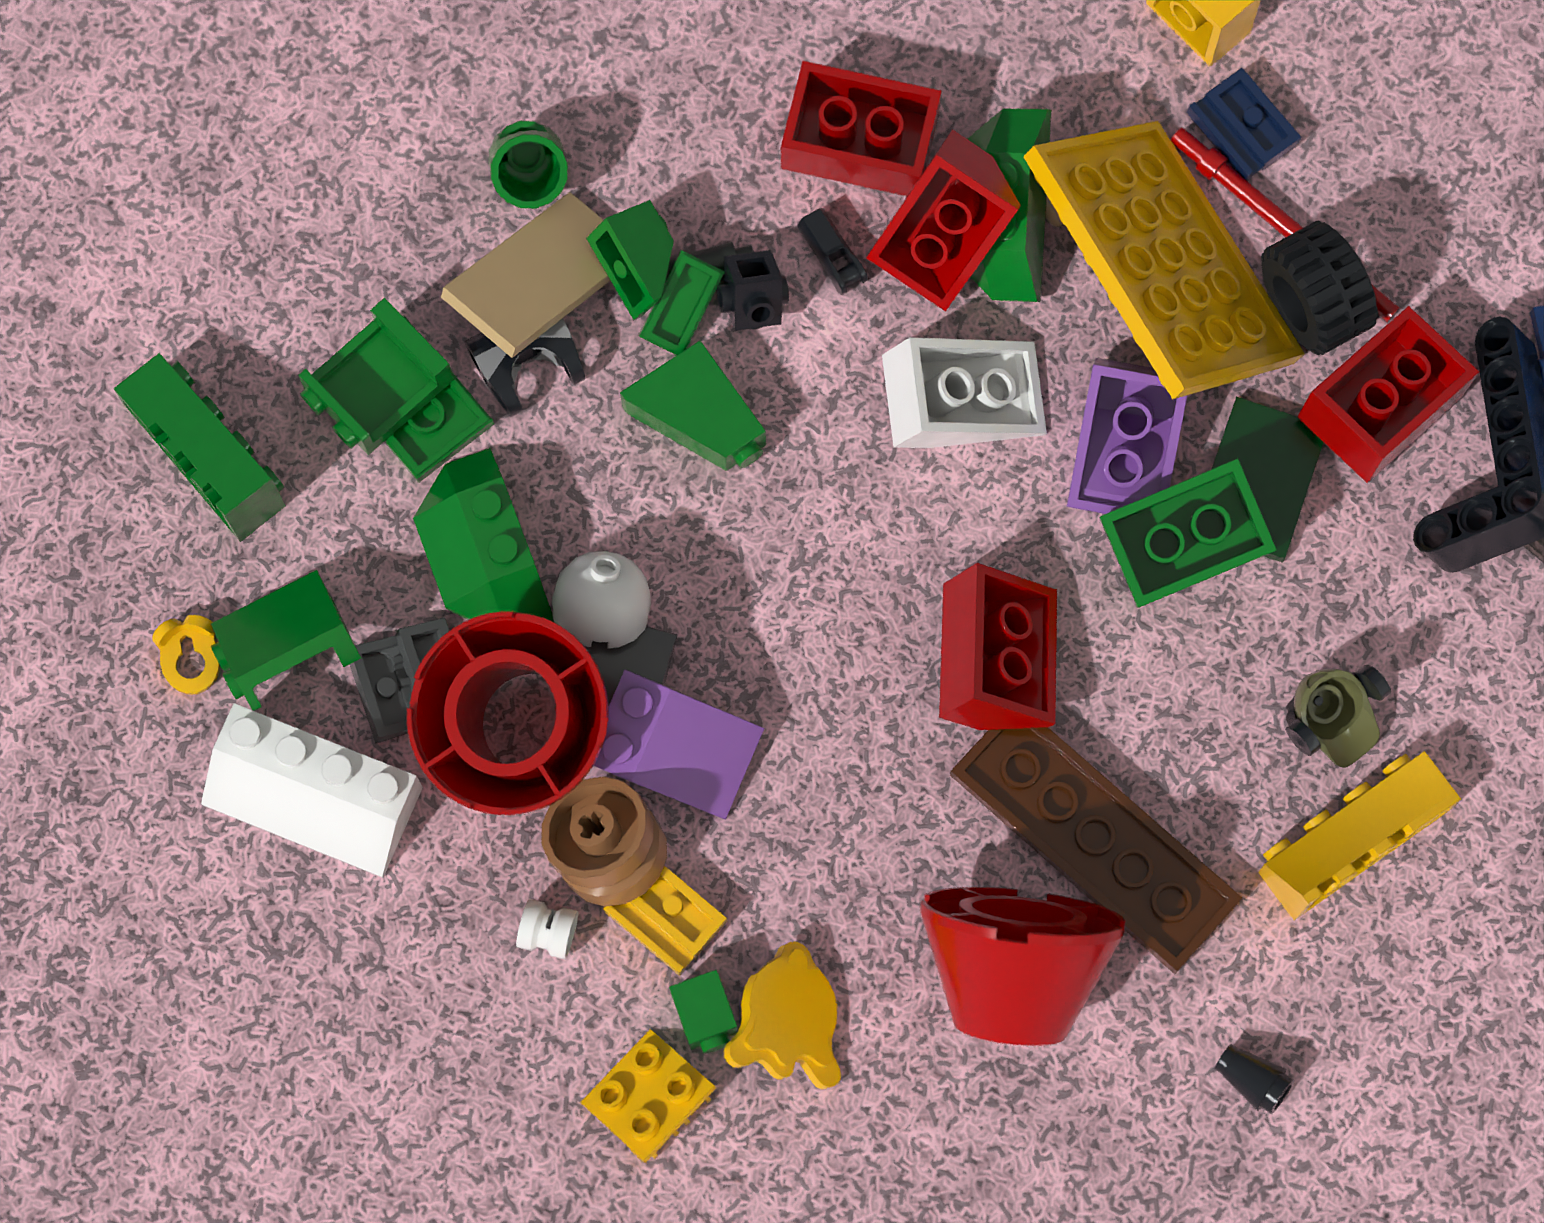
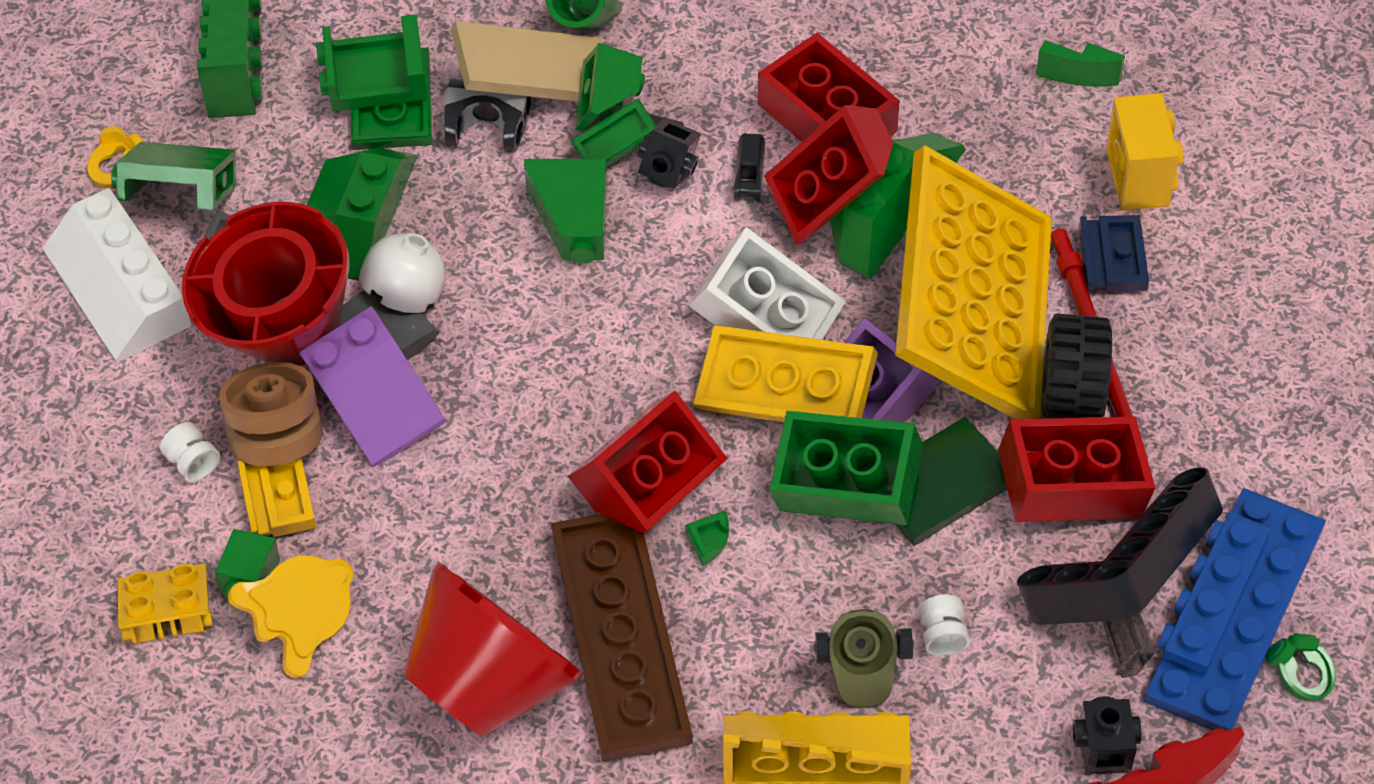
camera: 35 degrees right, 20 degrees down
(1056, 473) = (777, 373): none -> yellow plate
(1095, 680) = (708, 536): none -> green tile
(1377, 631) = (943, 623): none -> white wheel

